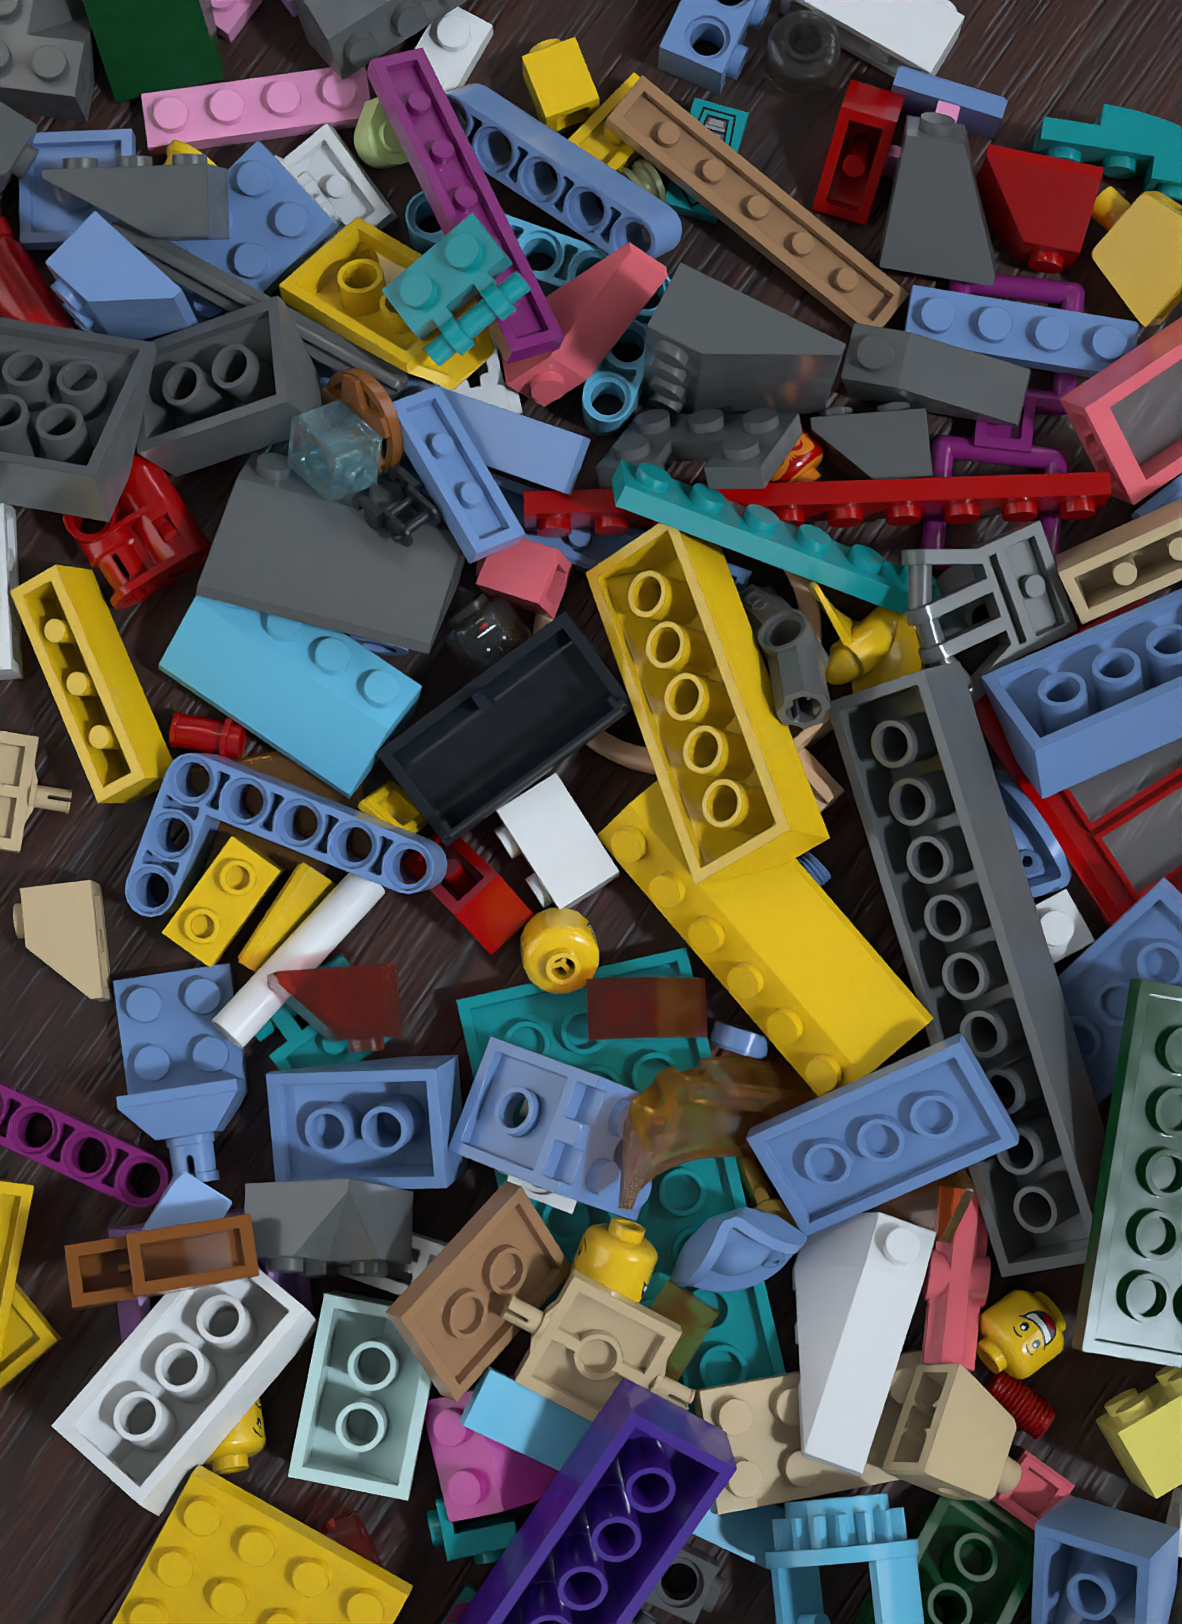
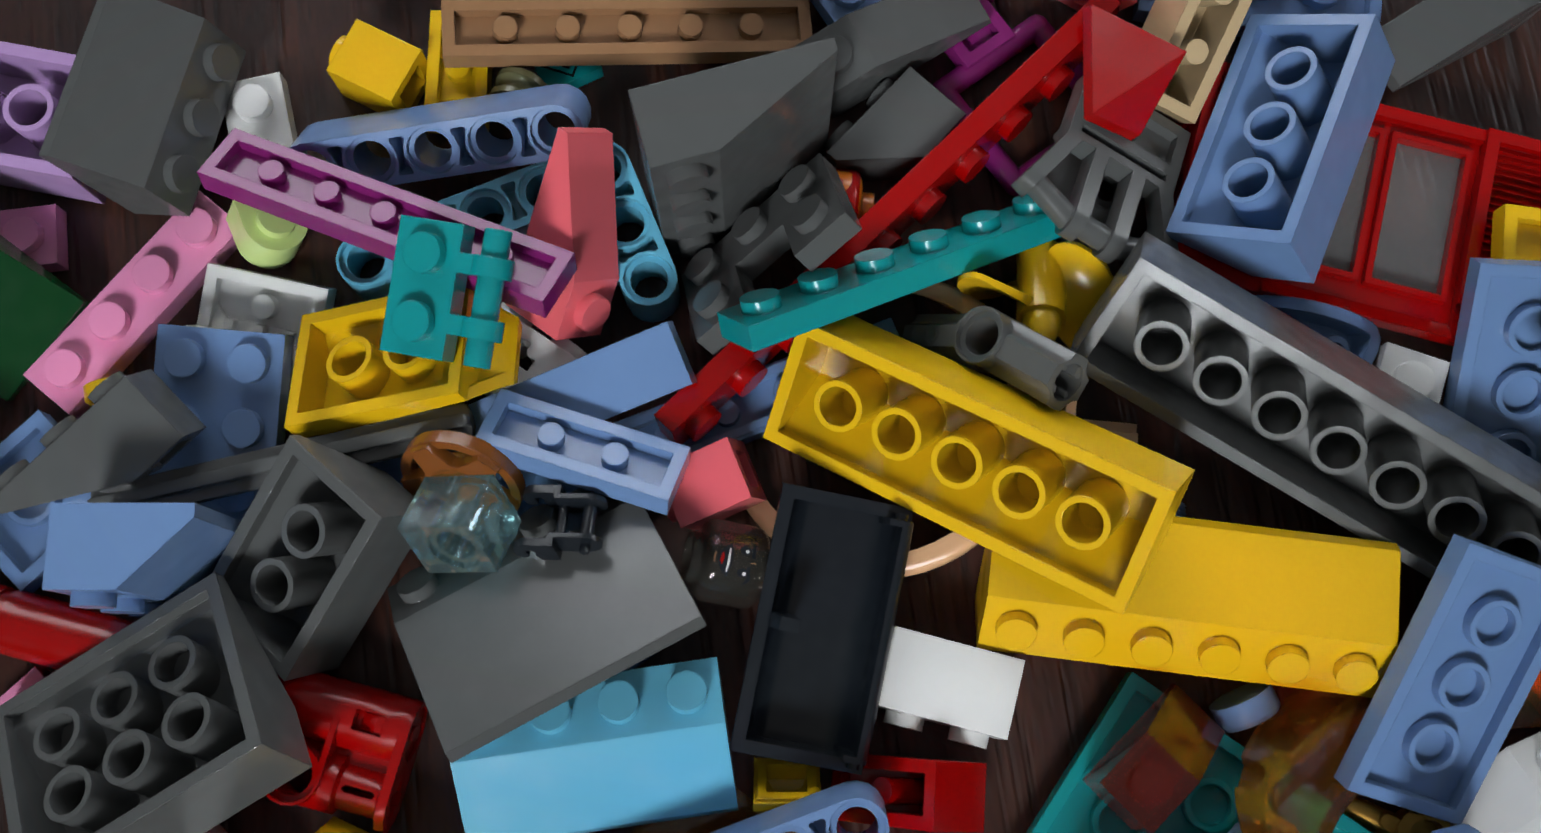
camera: 45 degrees left, 5 degrees down
(559, 950) = (1033, 773): yellow head -> none
(1057, 540) = (1123, 72): none -> red slope

